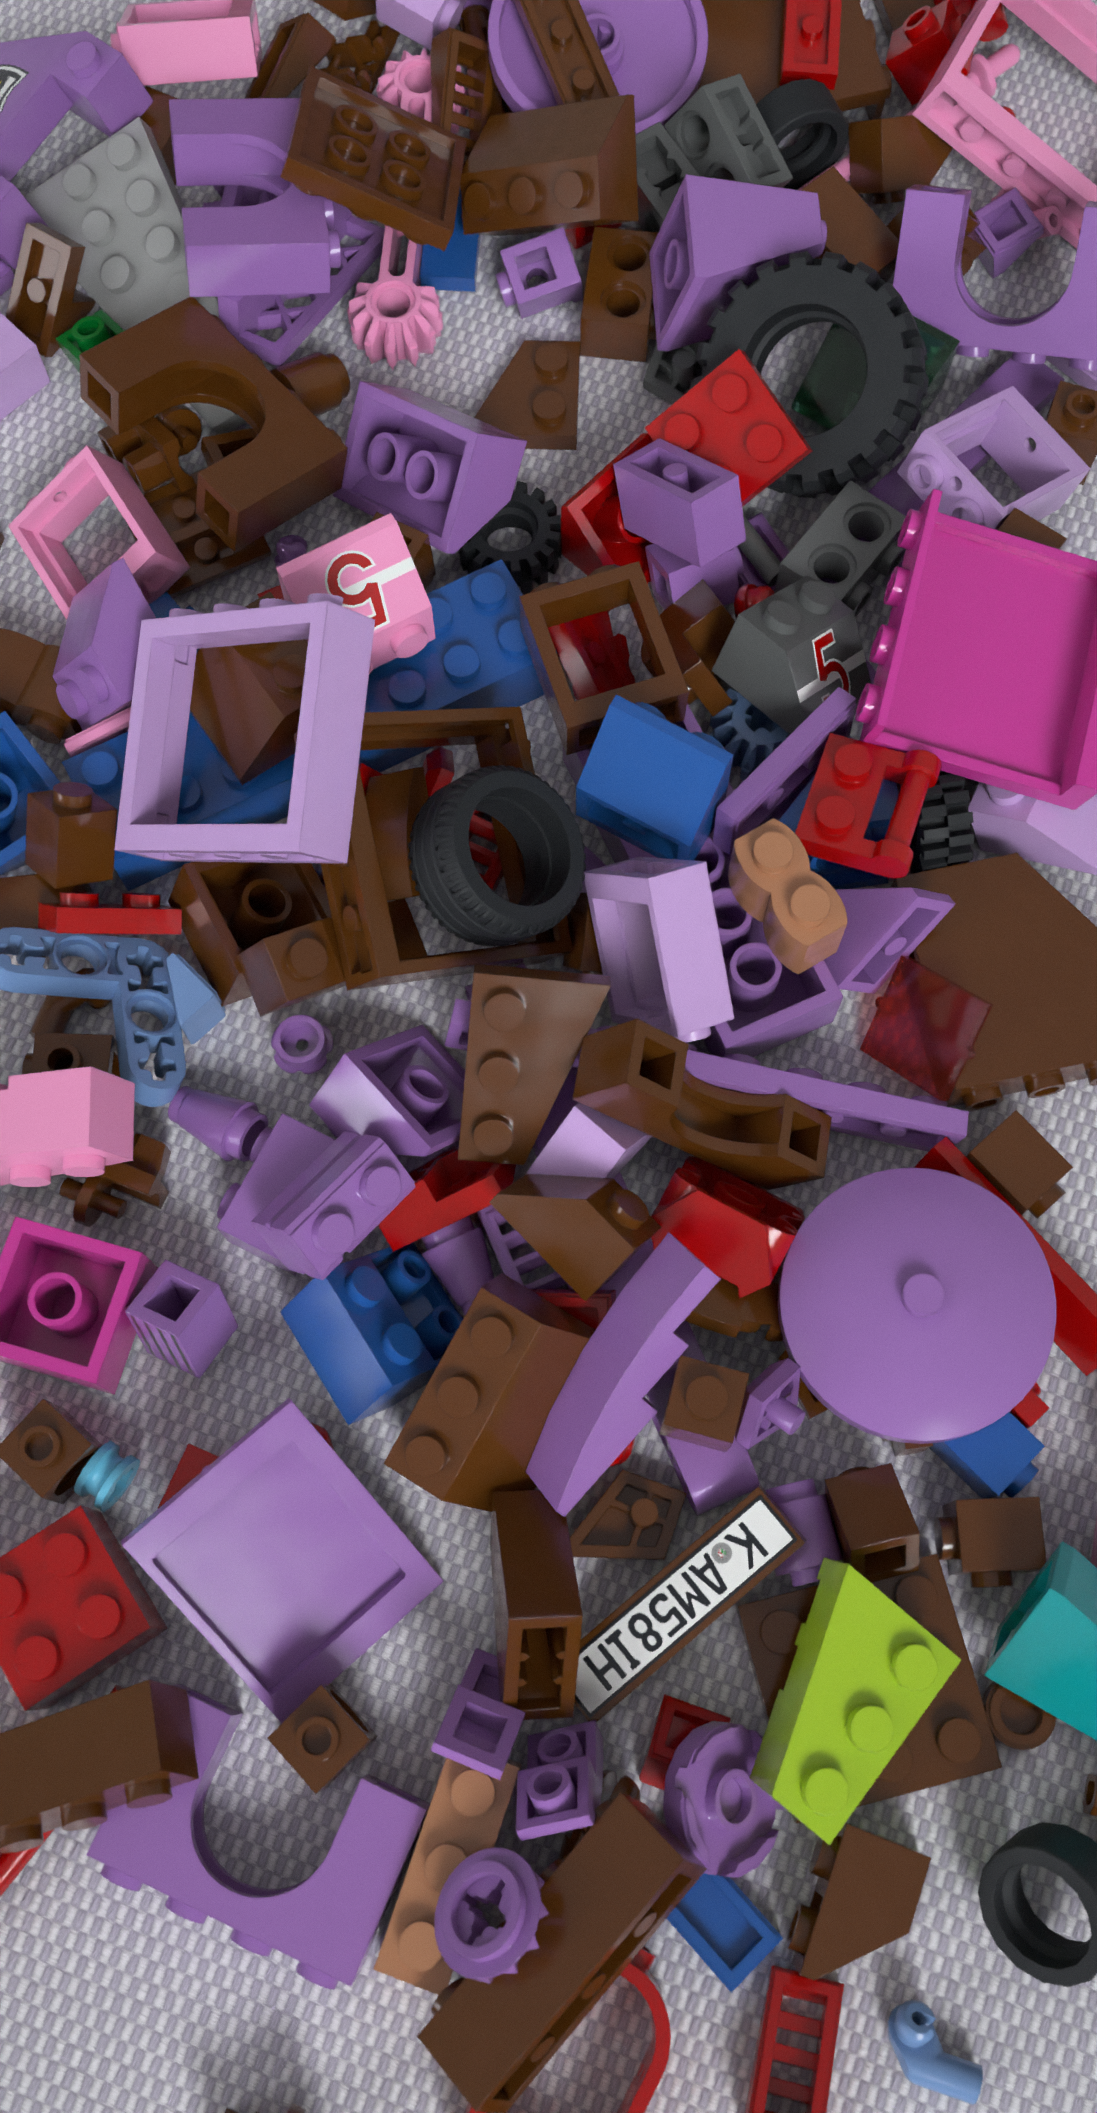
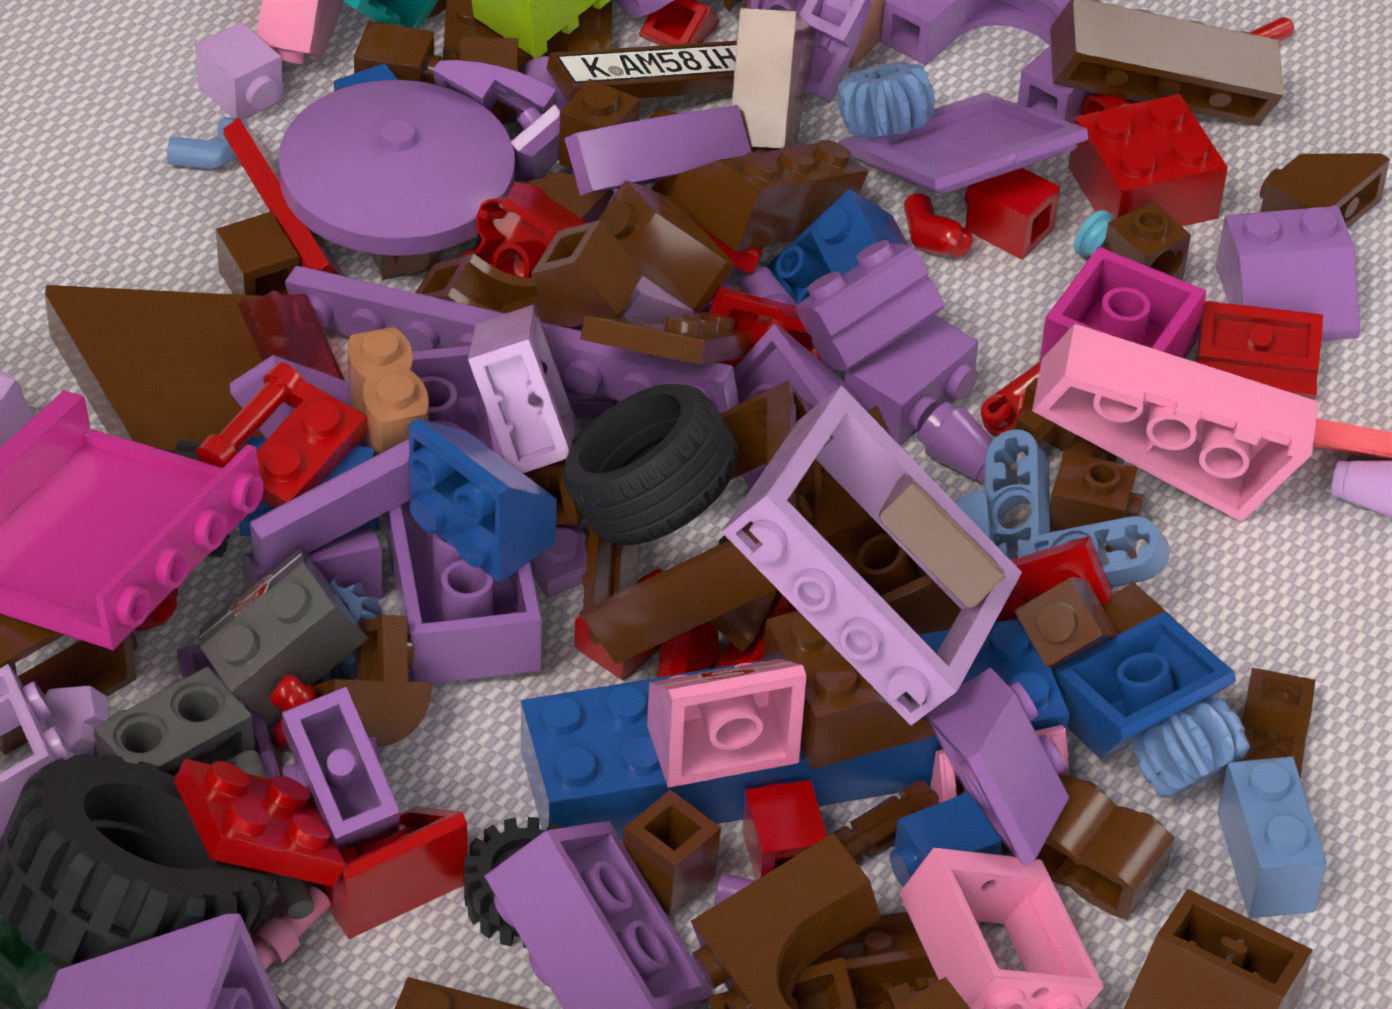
camera: 170 degrees left, 25 degrees down
(179, 1204) = (1006, 405): none -> red arm
(180, 775) = (939, 542): none -> slope
(182, 1318) = (1019, 299): medium lavender brick -> none
(322, 1737) = (956, 59): reddish brown brick -> none
(368, 1628) = (886, 100): none -> medium blue gear
(592, 655) = (477, 733): red wing -> none
(600, 591) = (484, 585): reddish brown window -> none
(871, 1457) = (490, 82): none -> medium lavender slope

